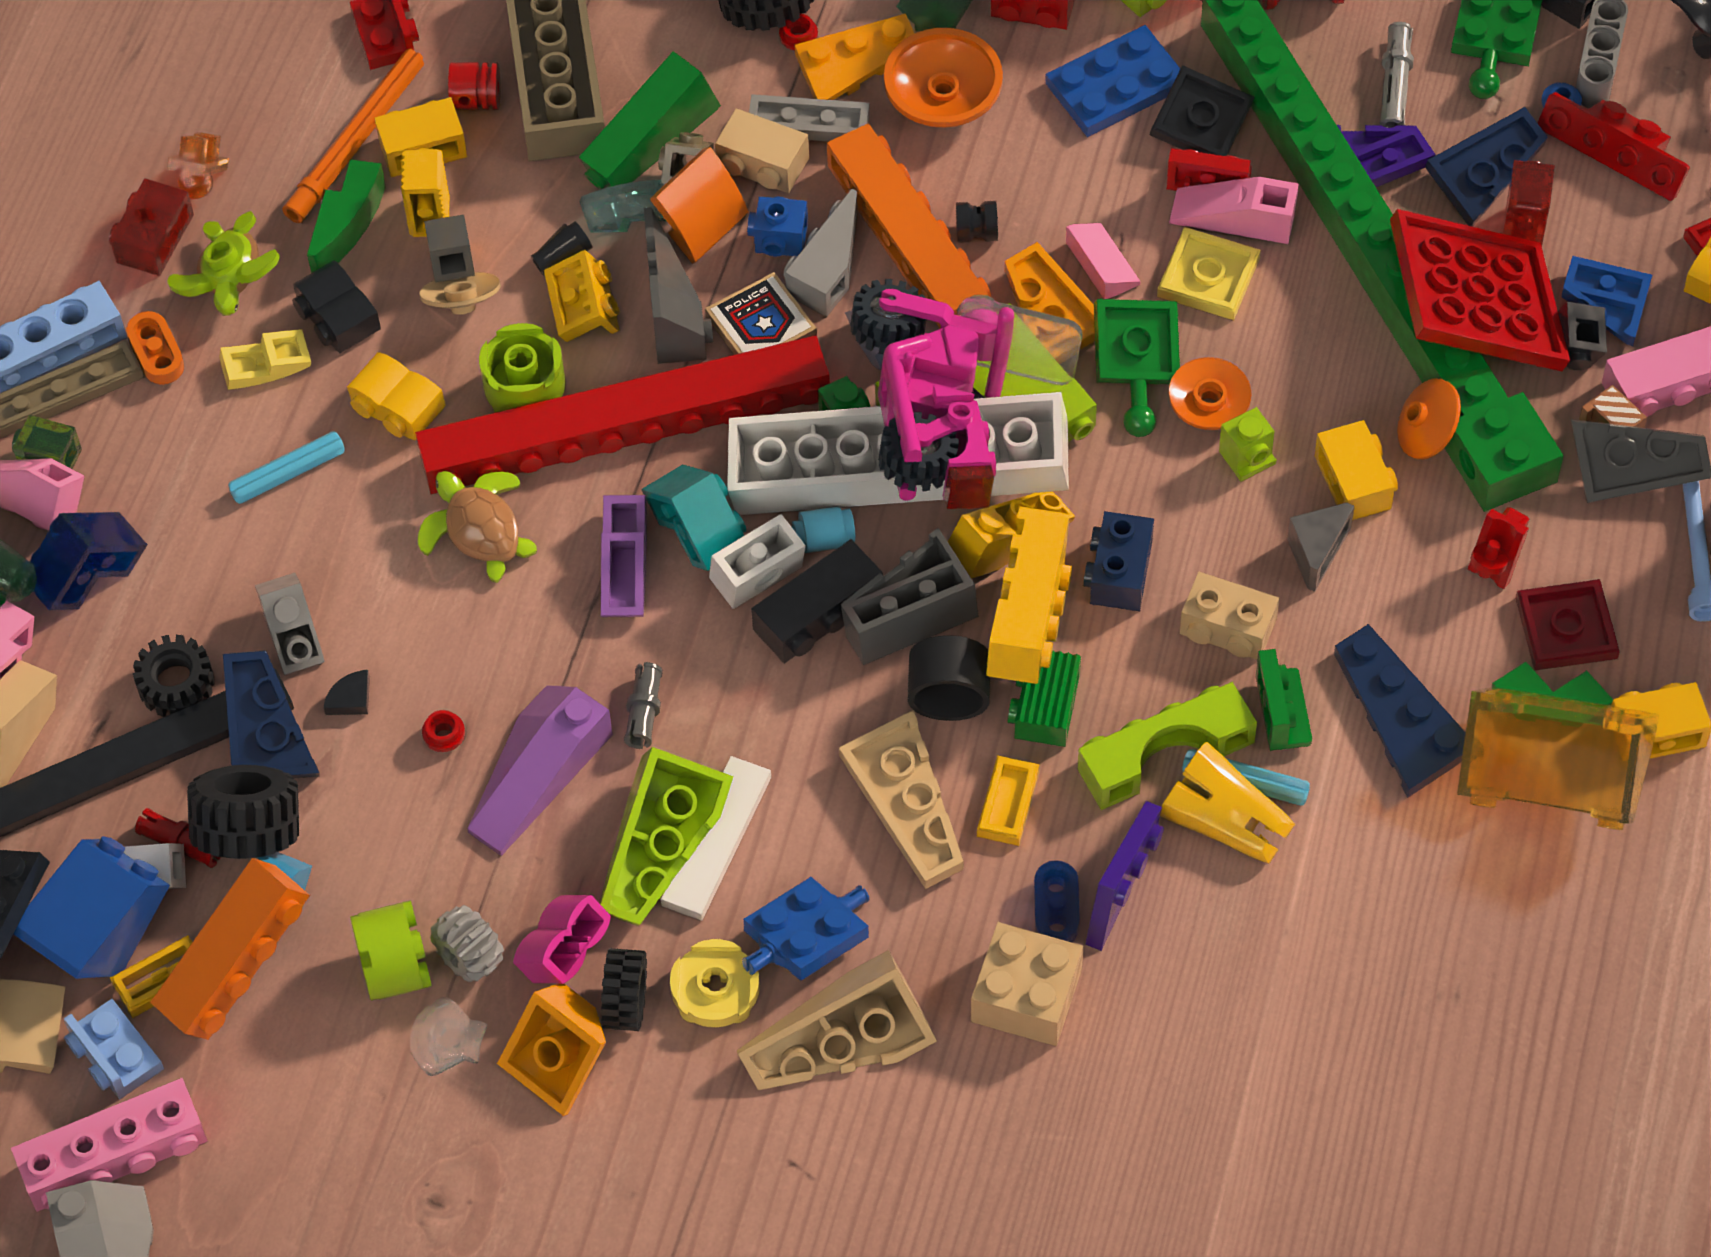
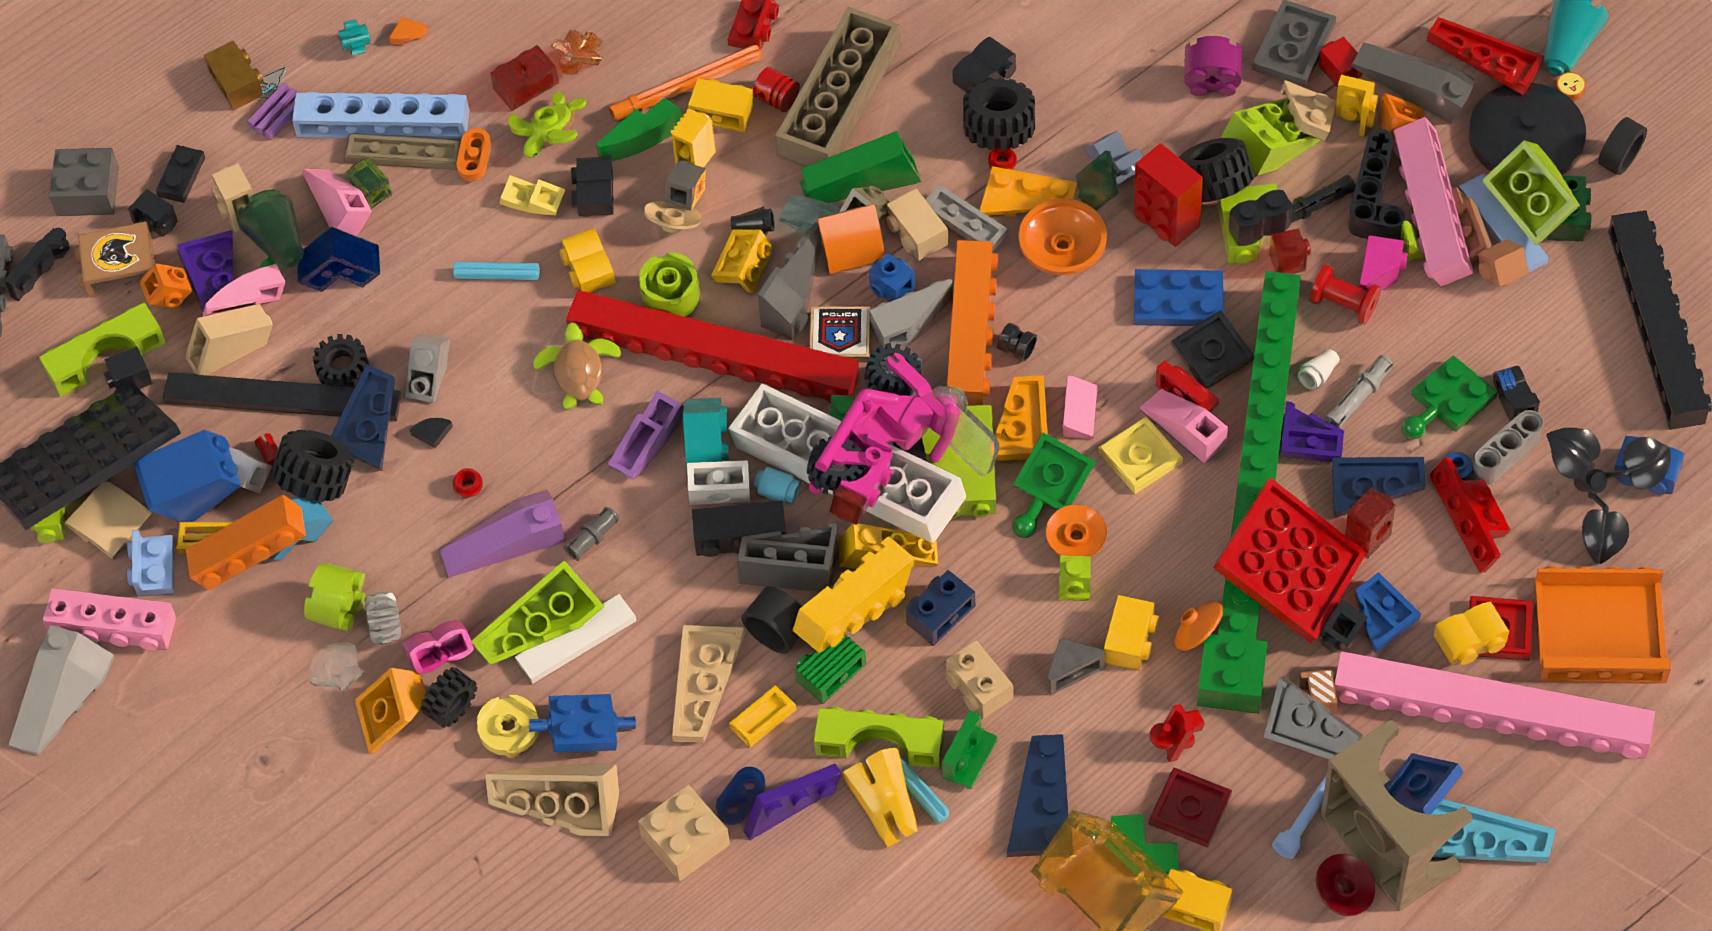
camera: 35 degrees right, 0 degrees up
(1333, 78) = (1317, 370): none -> white cone

